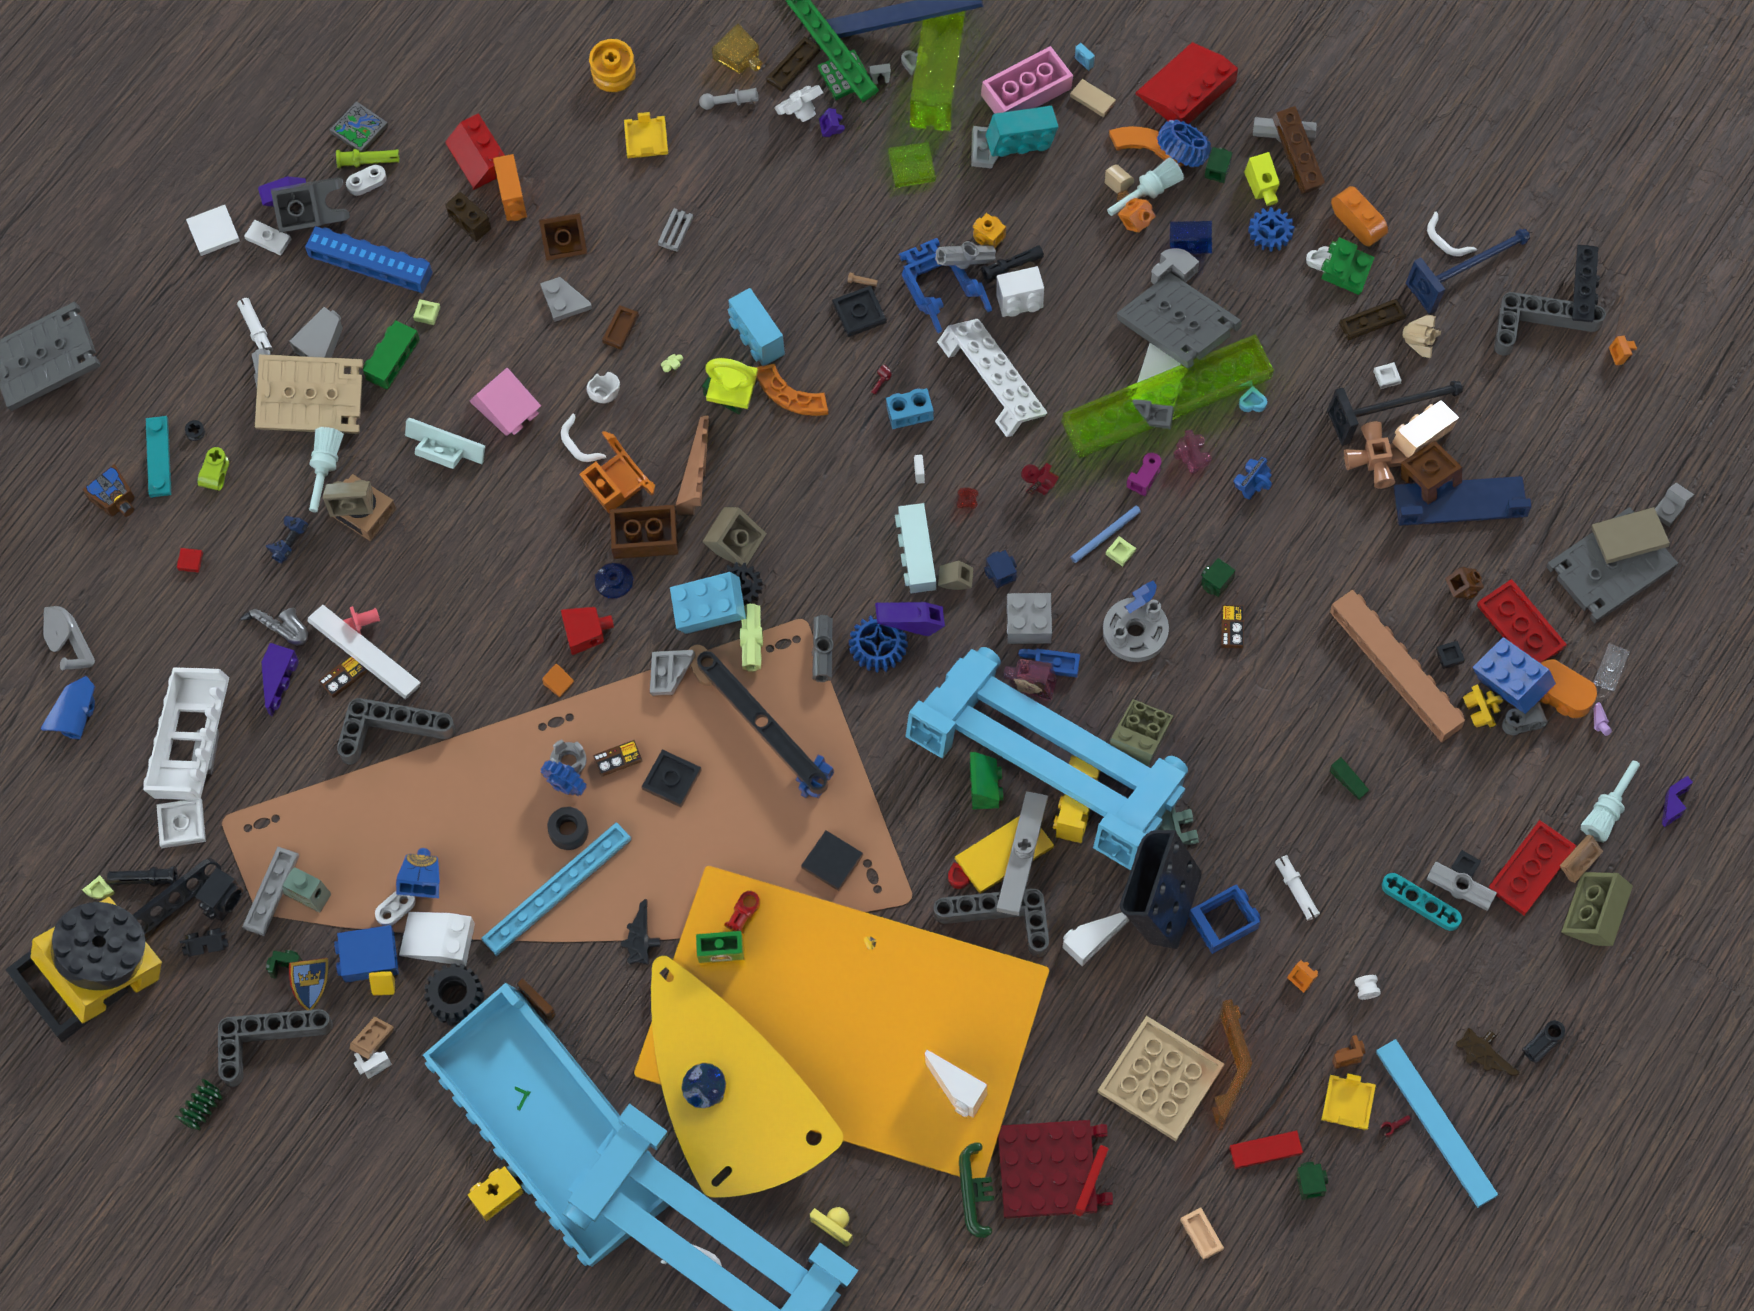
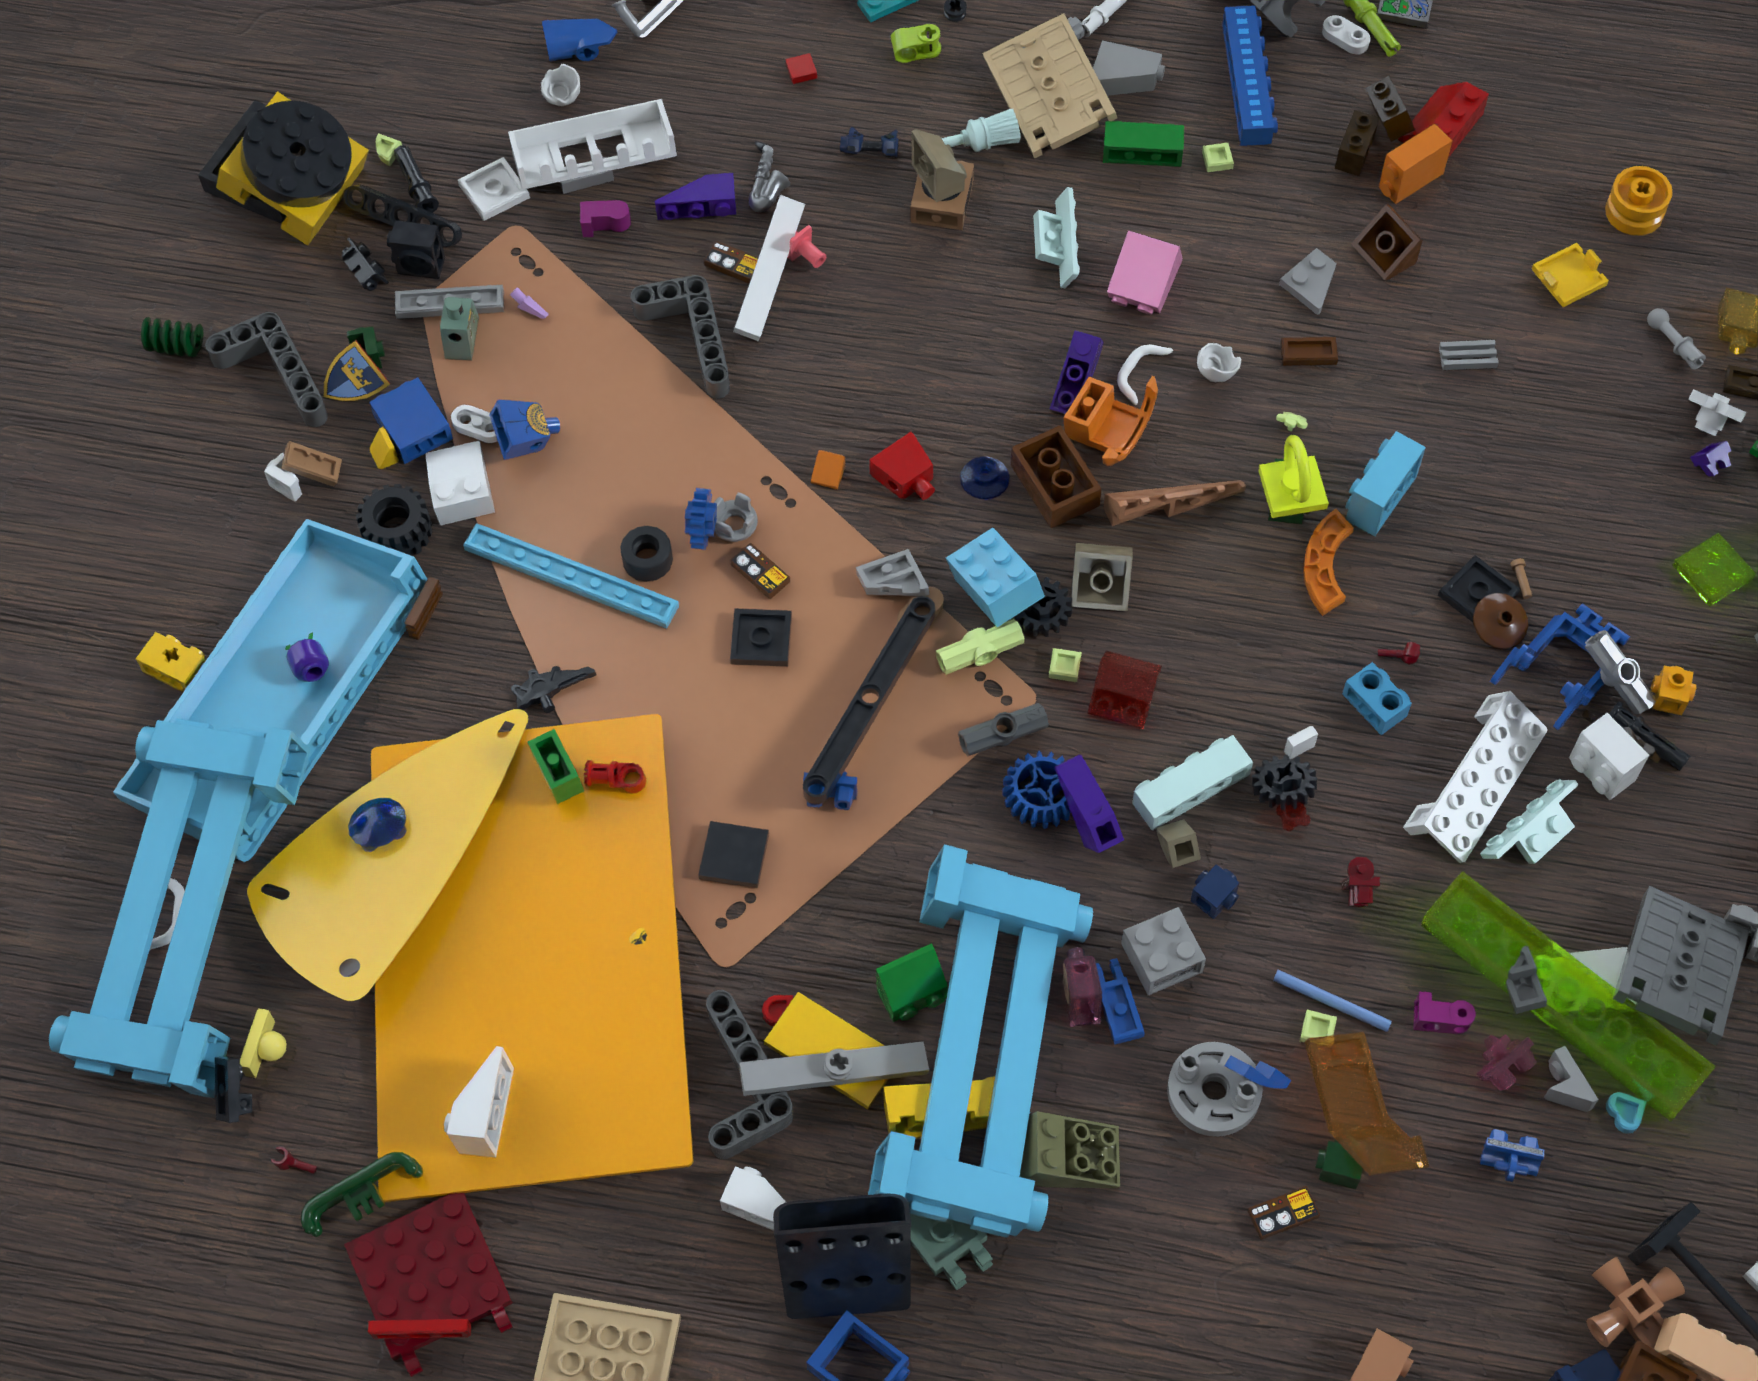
camera: 65 degrees right, 5 degrees down
(114, 736) = (561, 85): none -> white hair
(253, 750) = (604, 216): none -> magenta leg
(305, 834) = (527, 304): none -> lavender bar
(453, 181) = (1390, 108): none -> dark brown brick
(543, 1093) = (307, 660): none -> dark purple head
(563, 483) = (1078, 366): none -> dark purple slope
(788, 590) = (1065, 665): none -> yellowish green tile
(828, 559) = (1124, 689): none -> clear red slope
(861, 1255) = (228, 1100): none -> black hinge
(885, 313) = (1492, 628): none -> reddish brown dish
(929, 1232) = (288, 1161): none -> dark red hand
(949, 482) = (1284, 782): none -> black gear
(1043, 358) = (1537, 828): none -> light aqua bracket
(1189, 553) = (1357, 1108): none -> clear orange windscreen
(1227, 421) = (1574, 1089): none -> light grey slope

